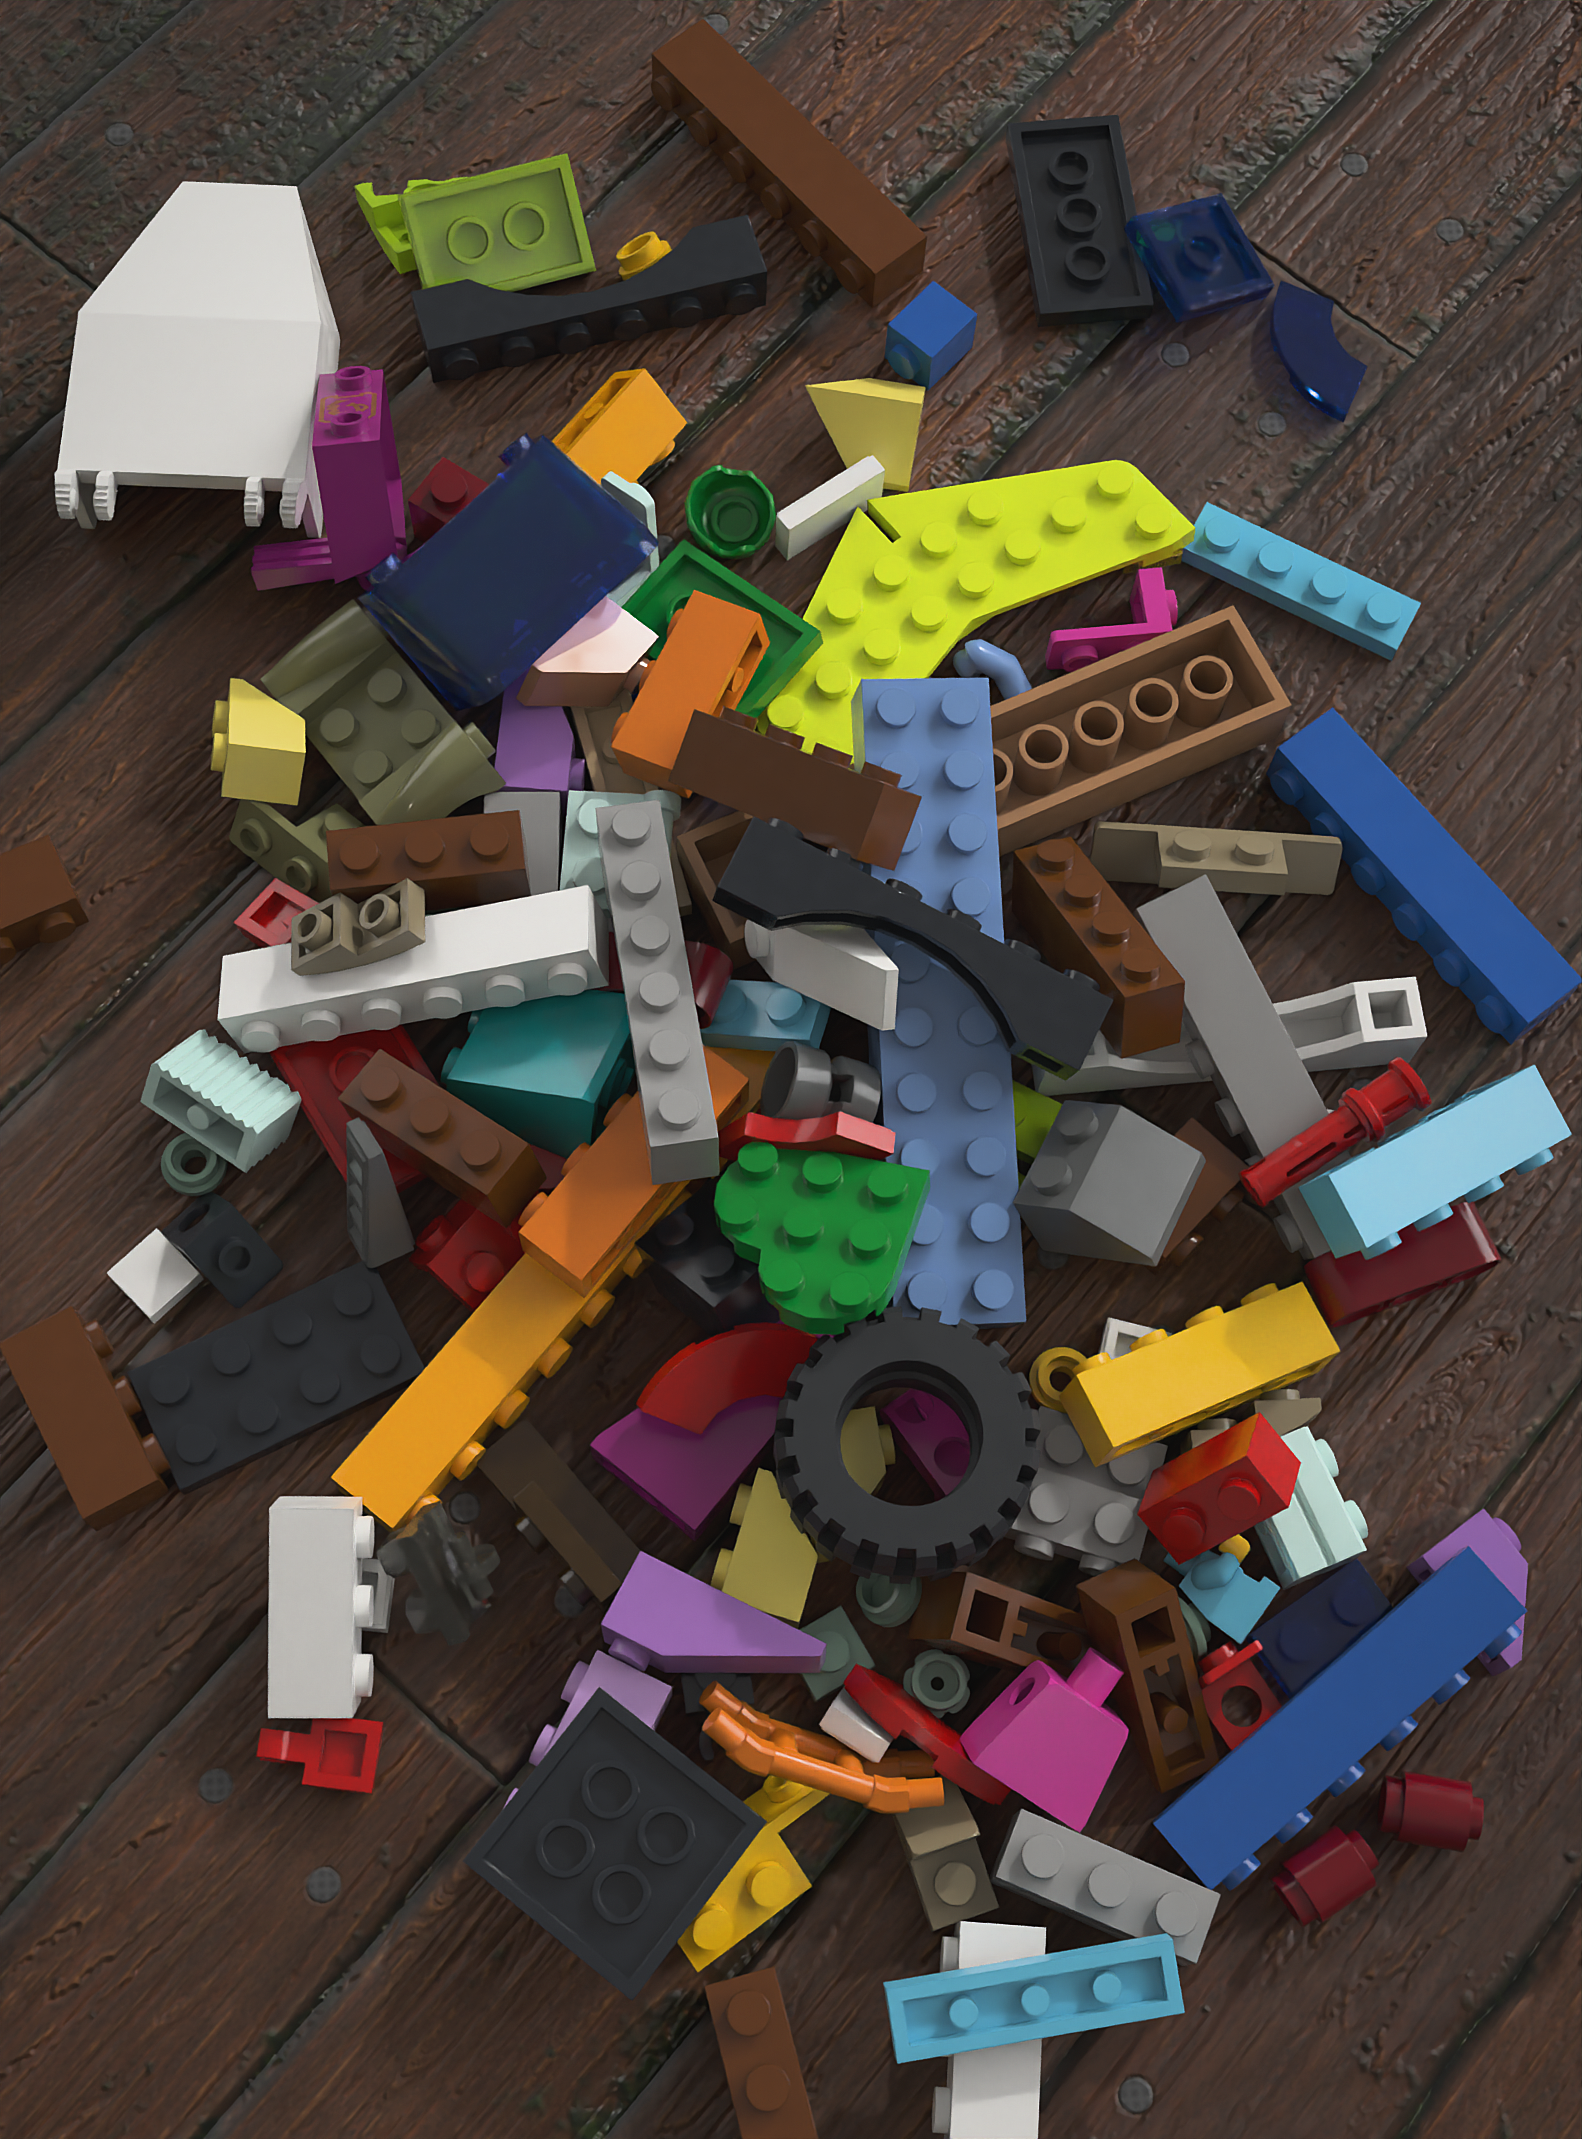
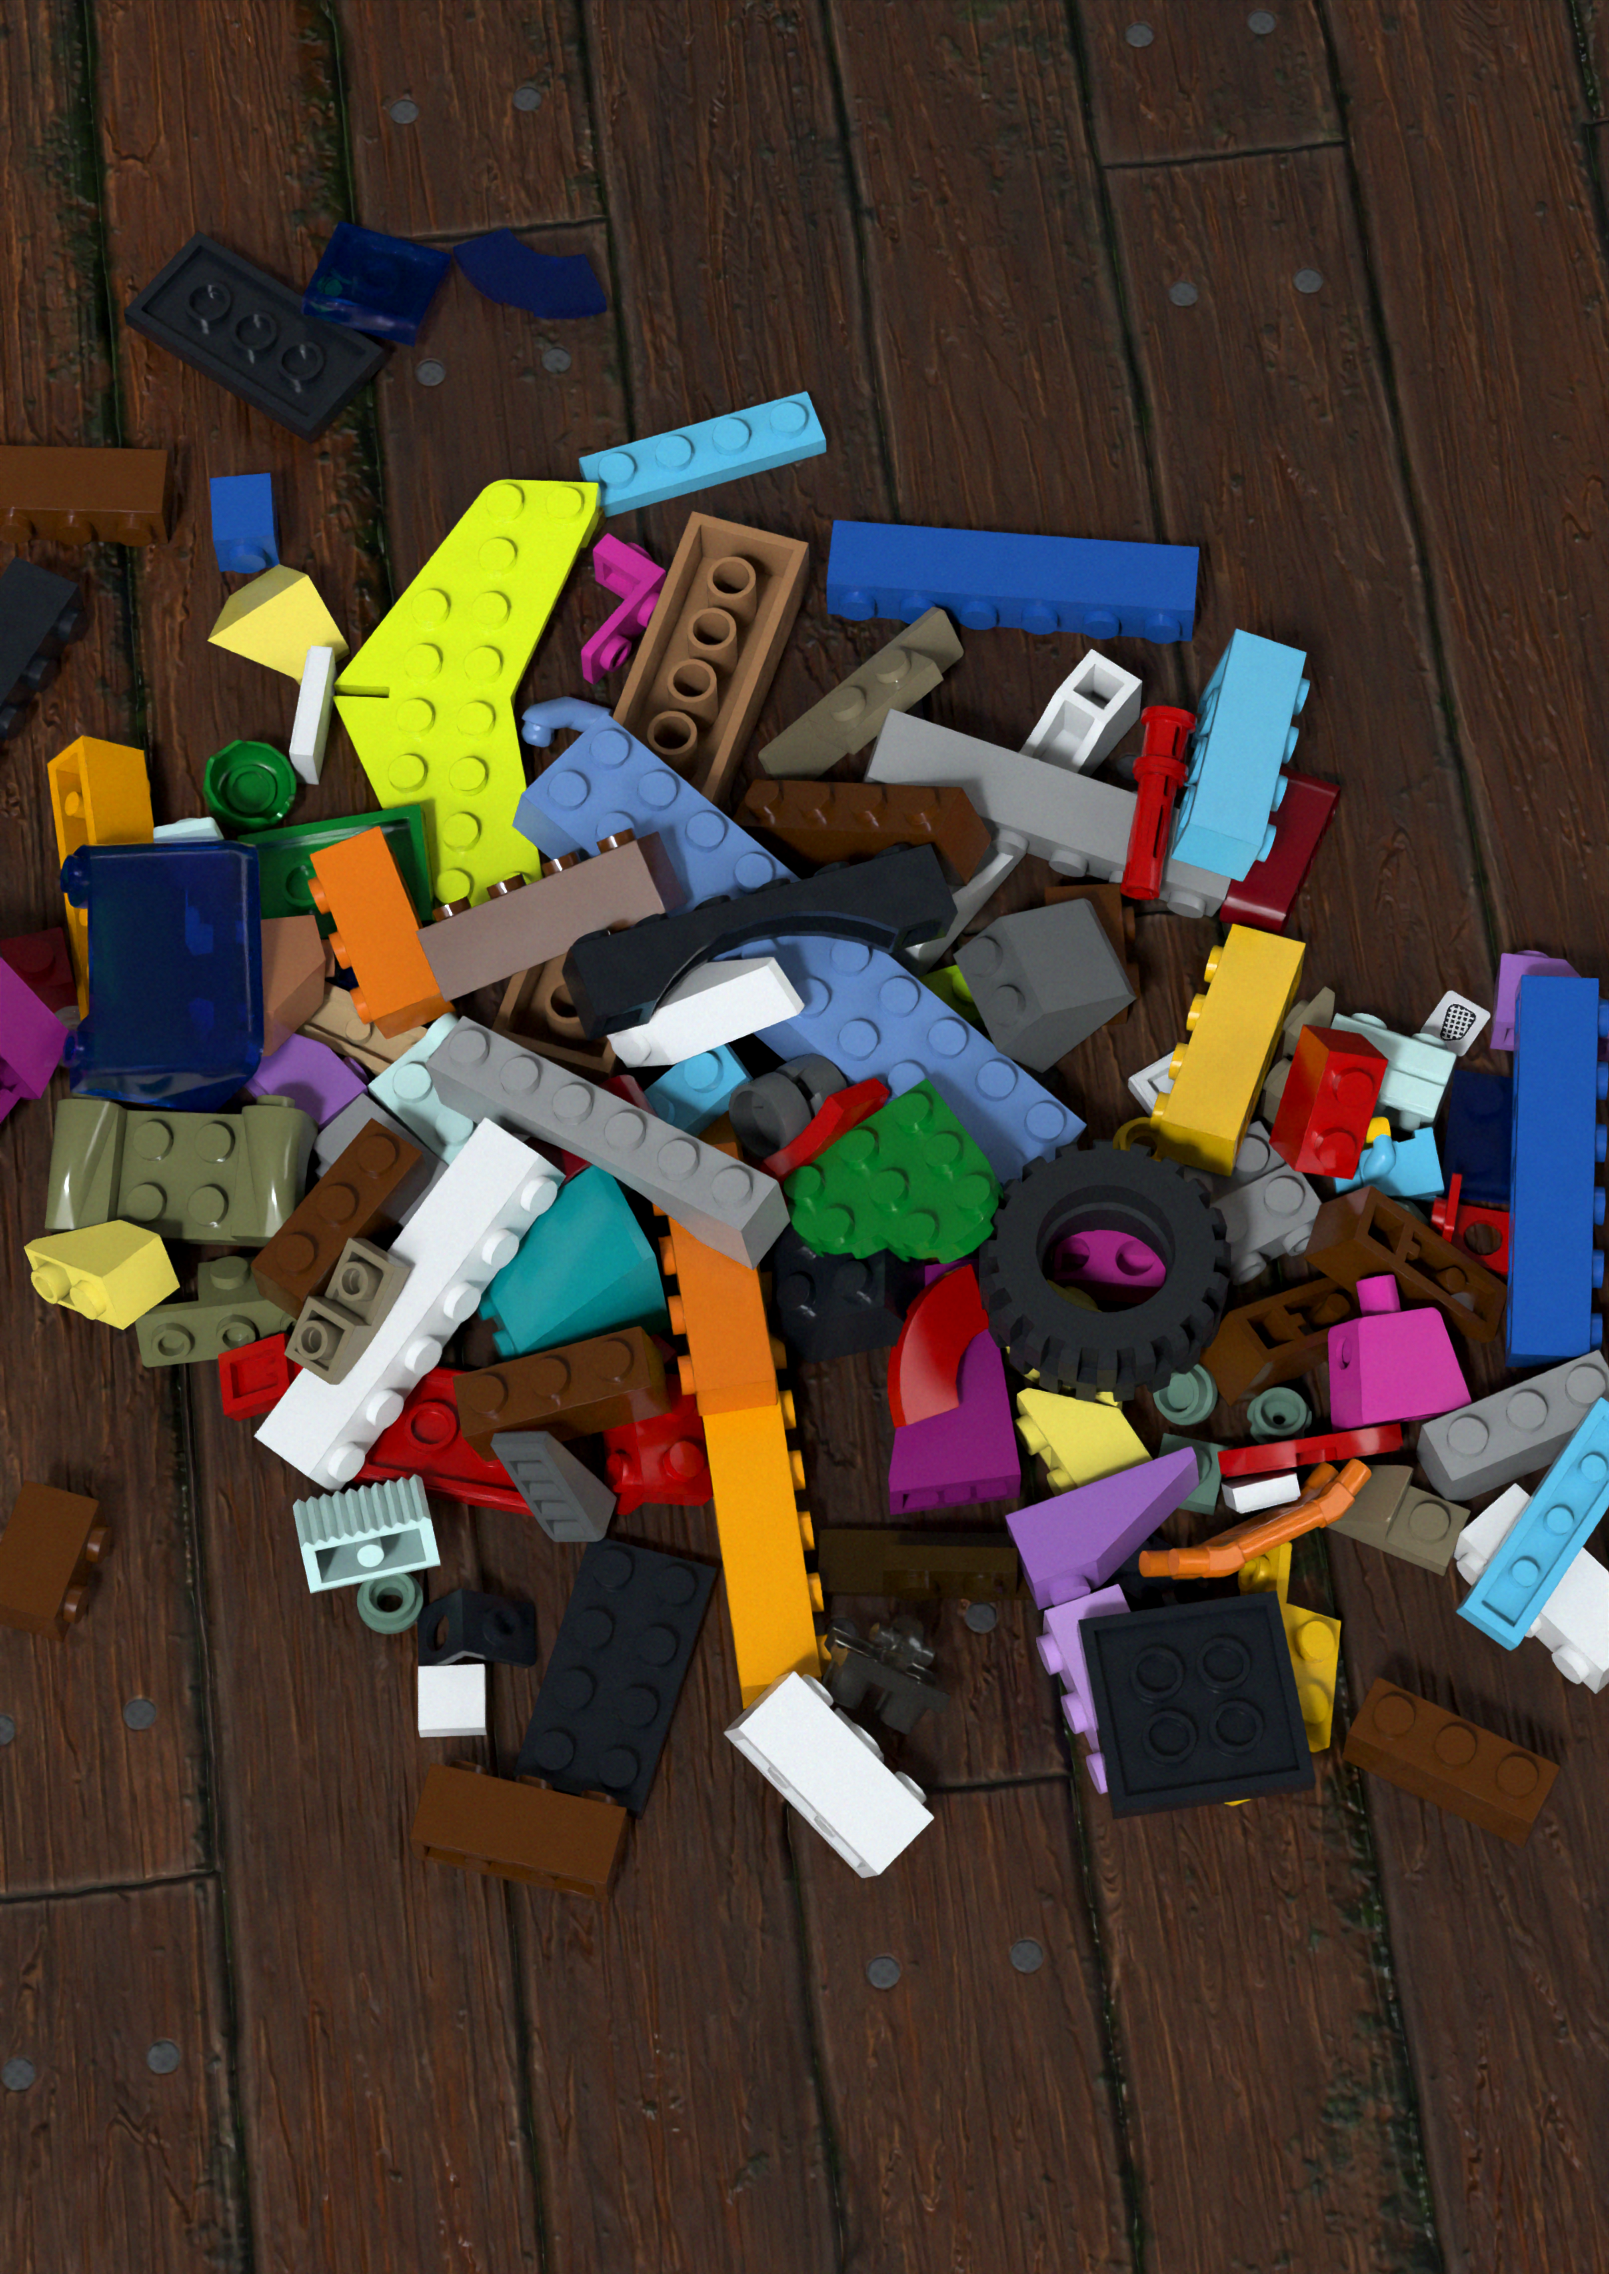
camera: 40 degrees left, 5 degrees down
(336, 1753) = (941, 1860): red plate -> none
(1400, 1522) = (1456, 1022): none -> white sticker

